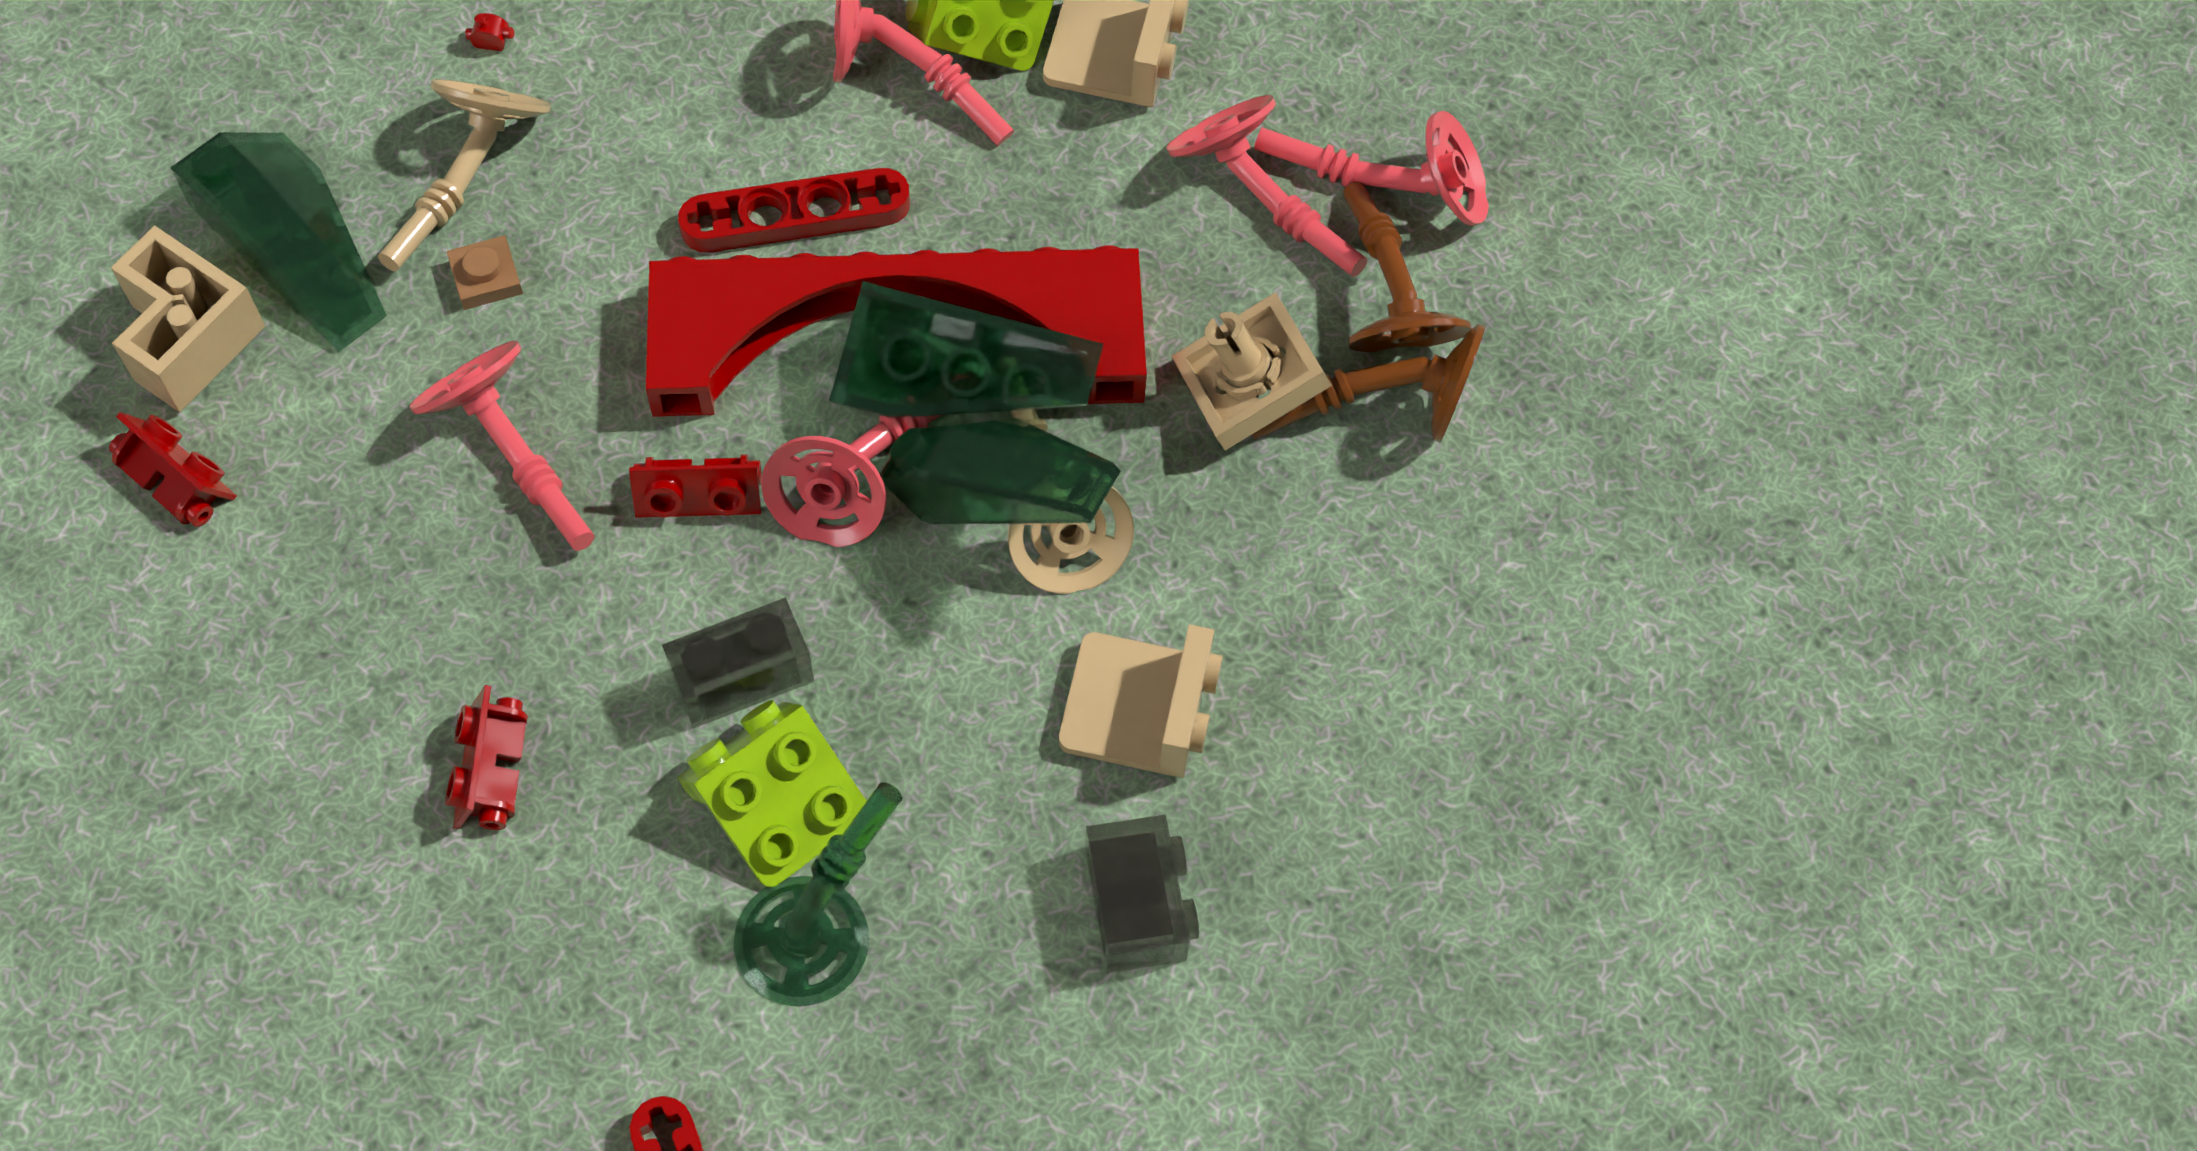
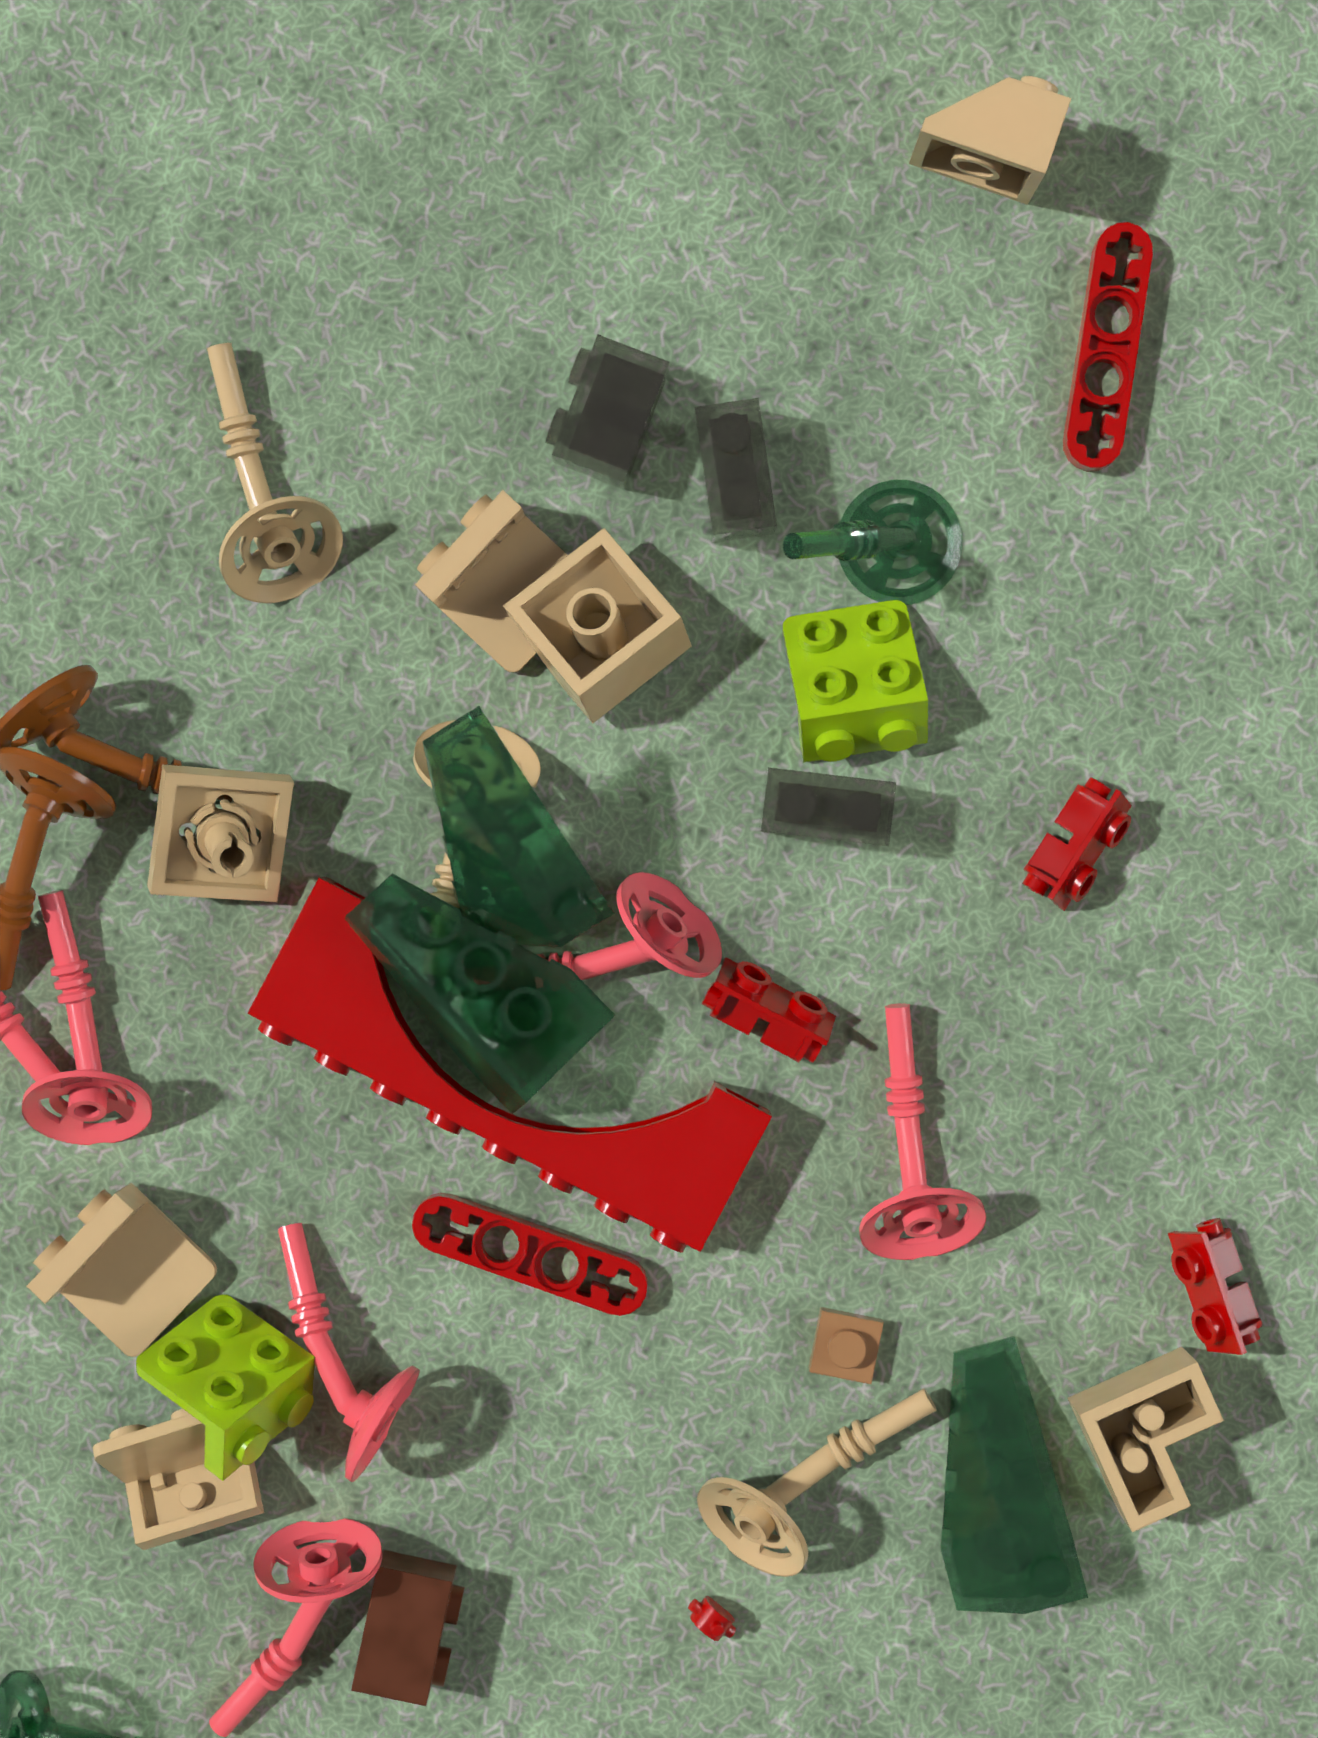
camera: 150 degrees left, 25 degrees up
(991, 901) = (735, 470): none -> clear smoke brick
(1035, 701) = (599, 625): none -> tan slope
(1367, 628) = (269, 530): none -> tan dish

